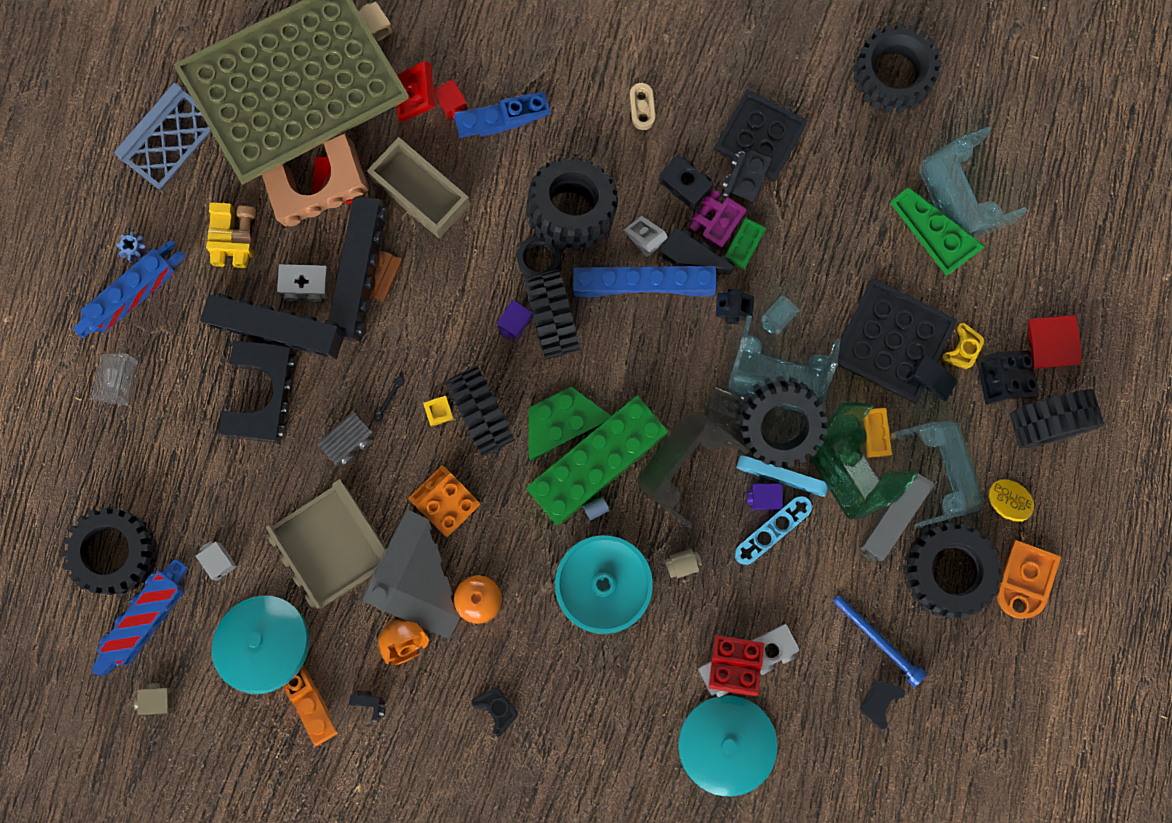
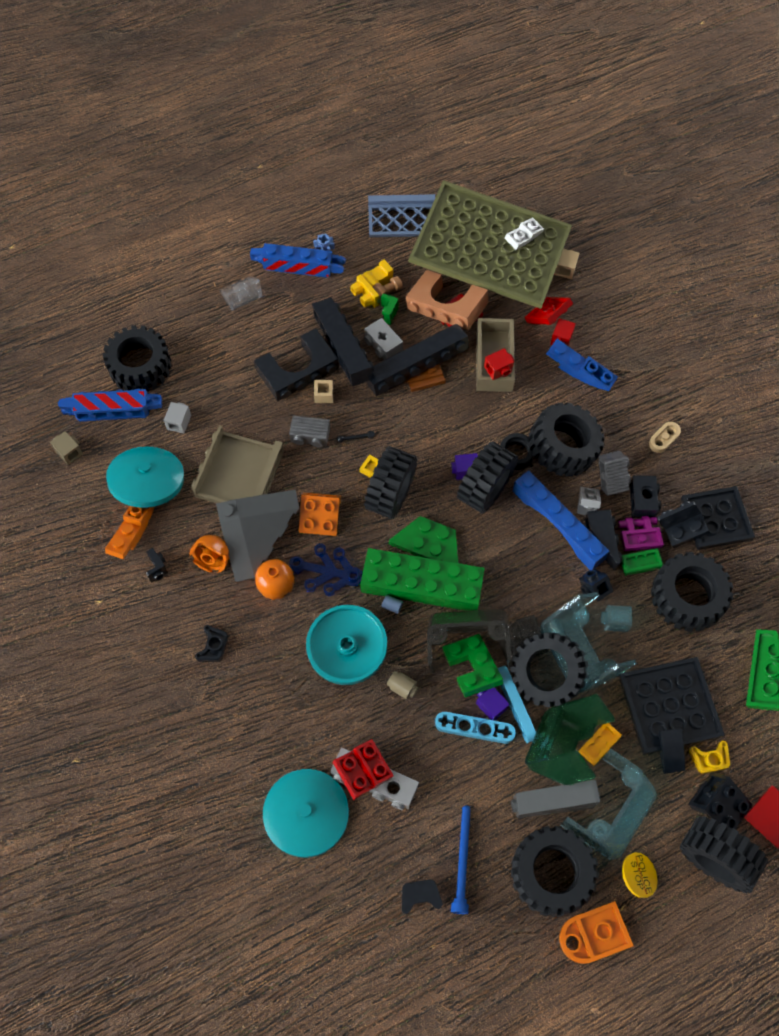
camera: 50 degrees right, 15 degrees down
(273, 245) = (391, 307): none -> green bracket
(308, 385) = (323, 391): none -> tan plate
(312, 39) = (524, 234): none -> white slope
(441, 197) = (499, 364): none -> red brick
(513, 540) = (328, 571): none -> clear blue plant
(642, 190) = (614, 473): none -> flat silver brick
(736, 479) = (485, 671): none -> green plate
(818, 198) = (706, 573): none -> black tyre

